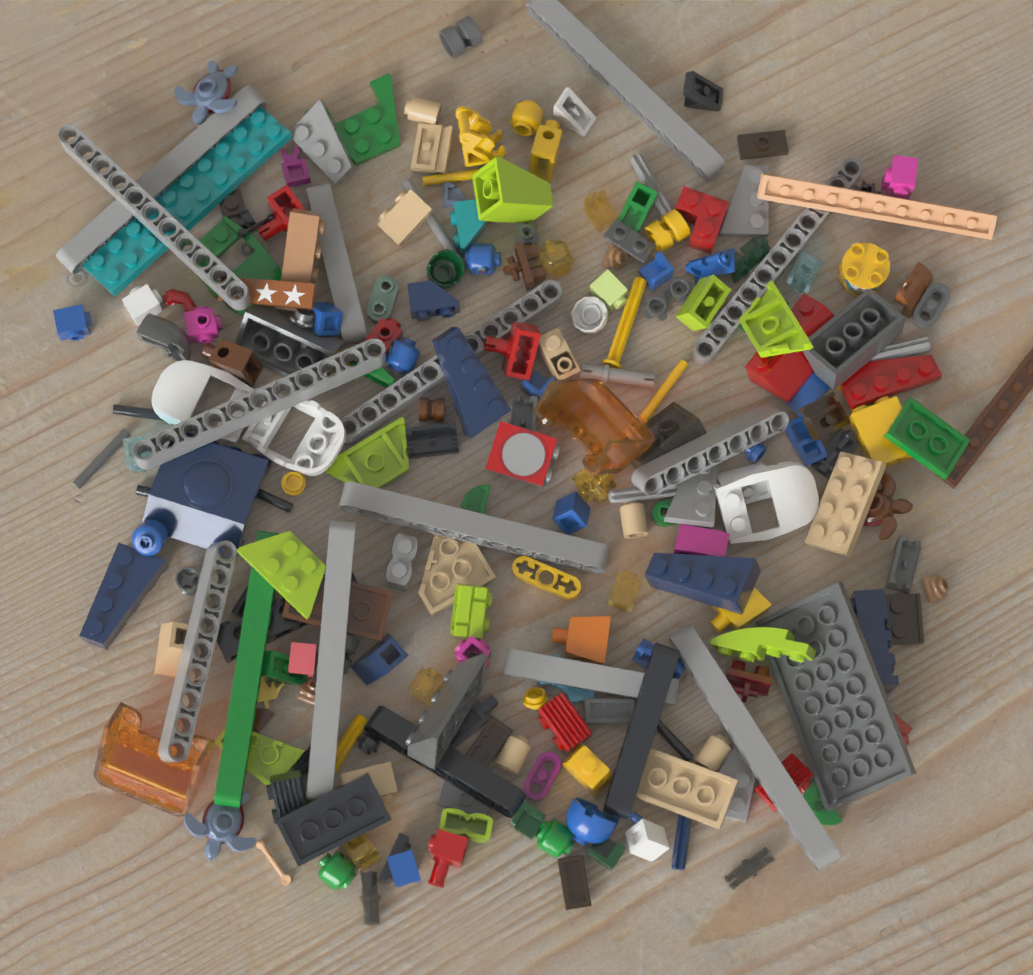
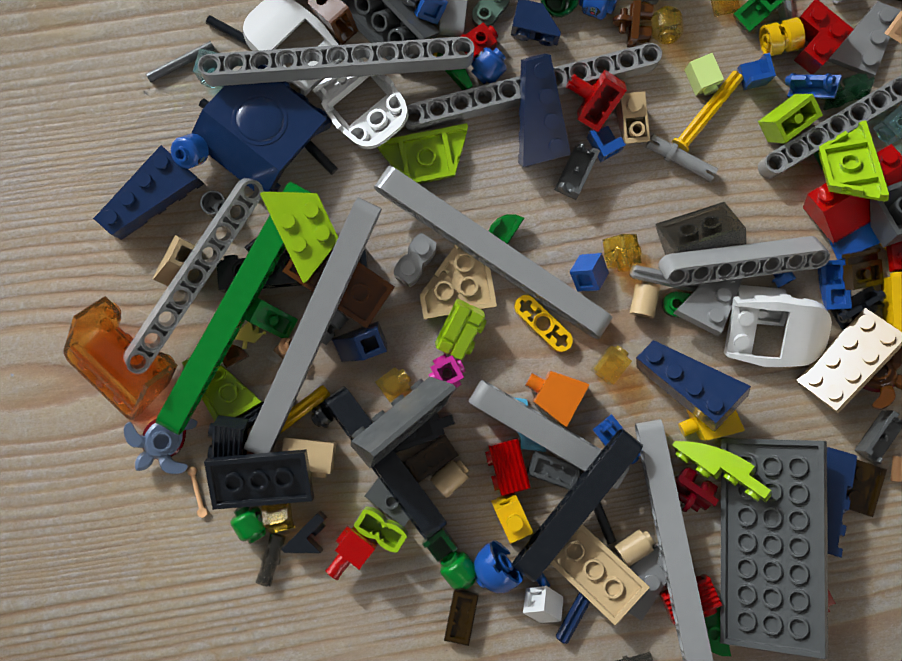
camera: 25 degrees right, 10 degrees up
(293, 483) = (344, 149): yellow plate -> none
(302, 658) = (289, 316): coral panel -> none
(404, 868) = (306, 553): blue panel -> none
(432, 440) = (486, 155): black hinge -> none
(438, 408) = (502, 128): reddish brown wheel -> none
(523, 454) = (565, 200): panel -> none
(535, 698) = (490, 432): yellow plate -> none
(541, 776) = (469, 507): magenta plate -> none
(590, 314) = (678, 90): white hair -> none
(597, 421) = (647, 194): clear orange windscreen -> none
(606, 853) = (502, 603): dark green panel -> none
(614, 257) = (722, 44): medium nougat plate -> none
(629, 241) = (742, 33): dark grey hinge -> none
(660, 302) = (748, 103): dark grey plate -> none
(663, 390) = (718, 188): yellow bar -> none
(680, 283) = (774, 92): dark grey plate -> none
(701, 541) = (701, 346): dark pink brick -> none

